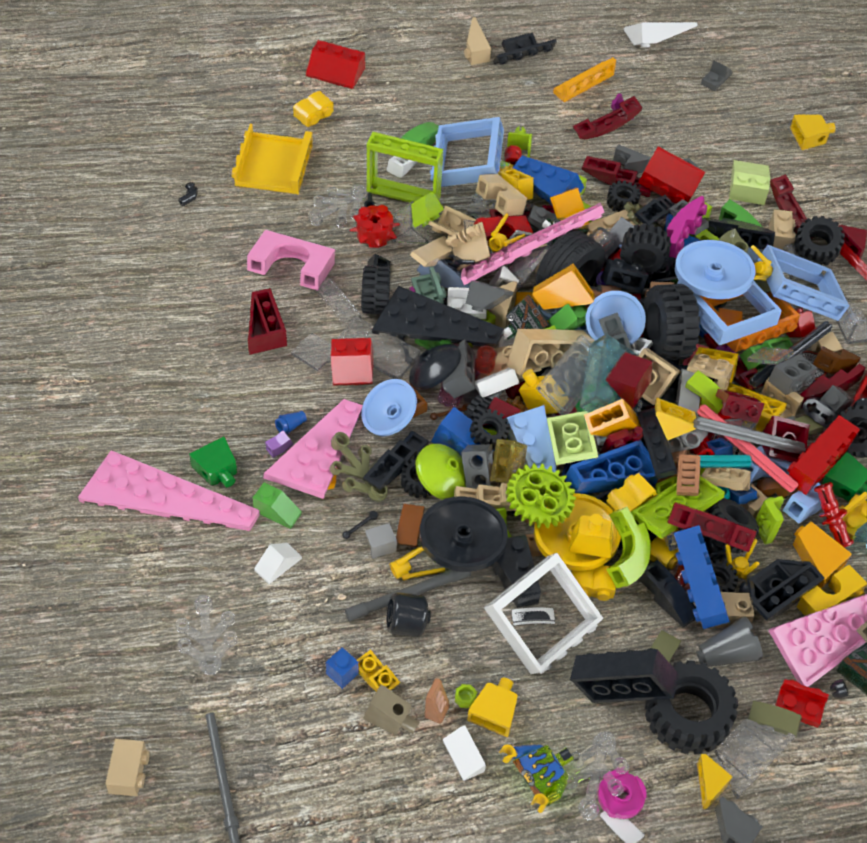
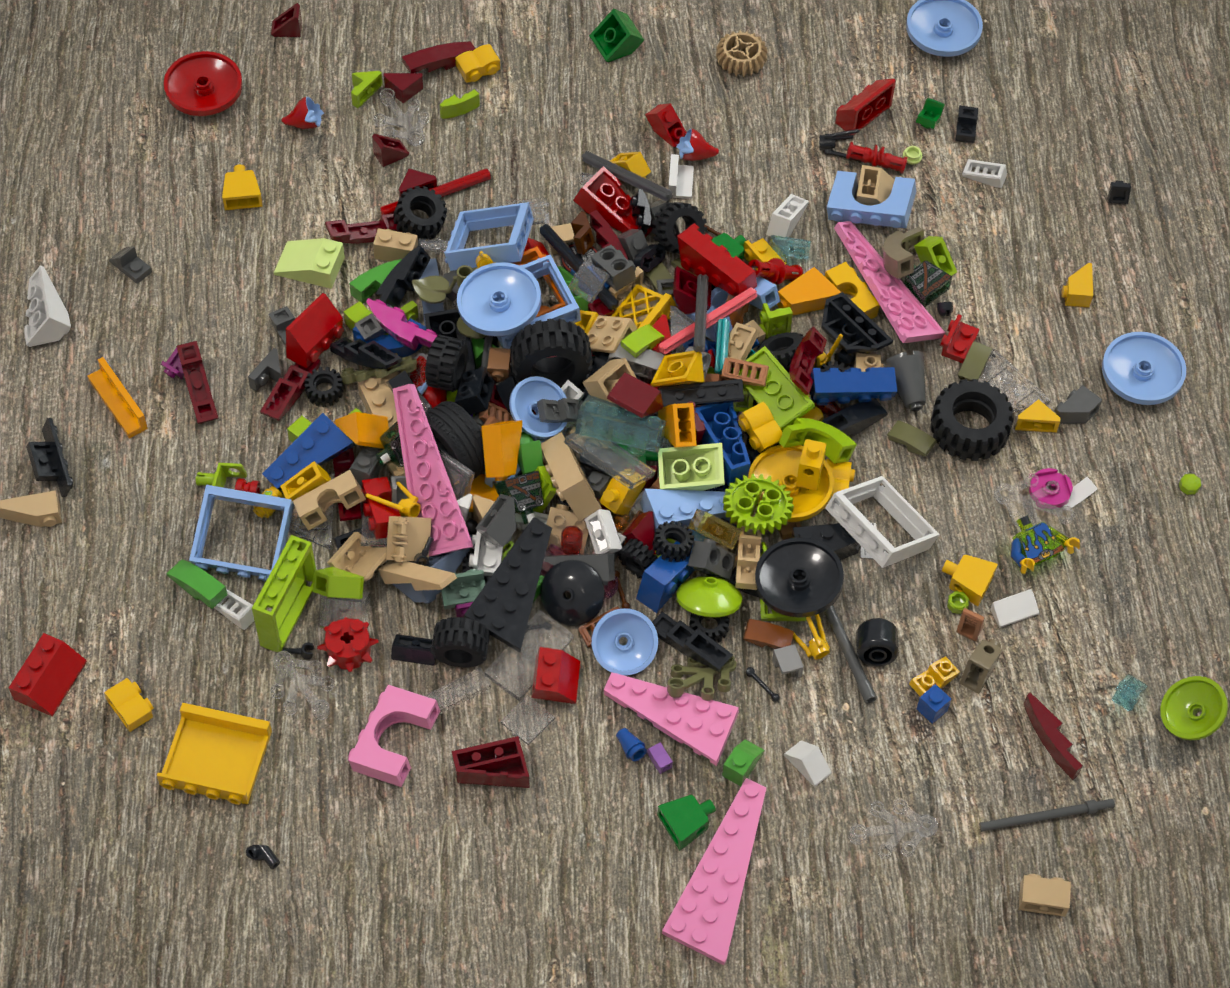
camera: 85 degrees left, 5 degrees up
(317, 779) = (1048, 730): none -> dark red slope
(624, 676) = (957, 459): black brick -> none
(740, 405) = (660, 312): dark red bracket -> none

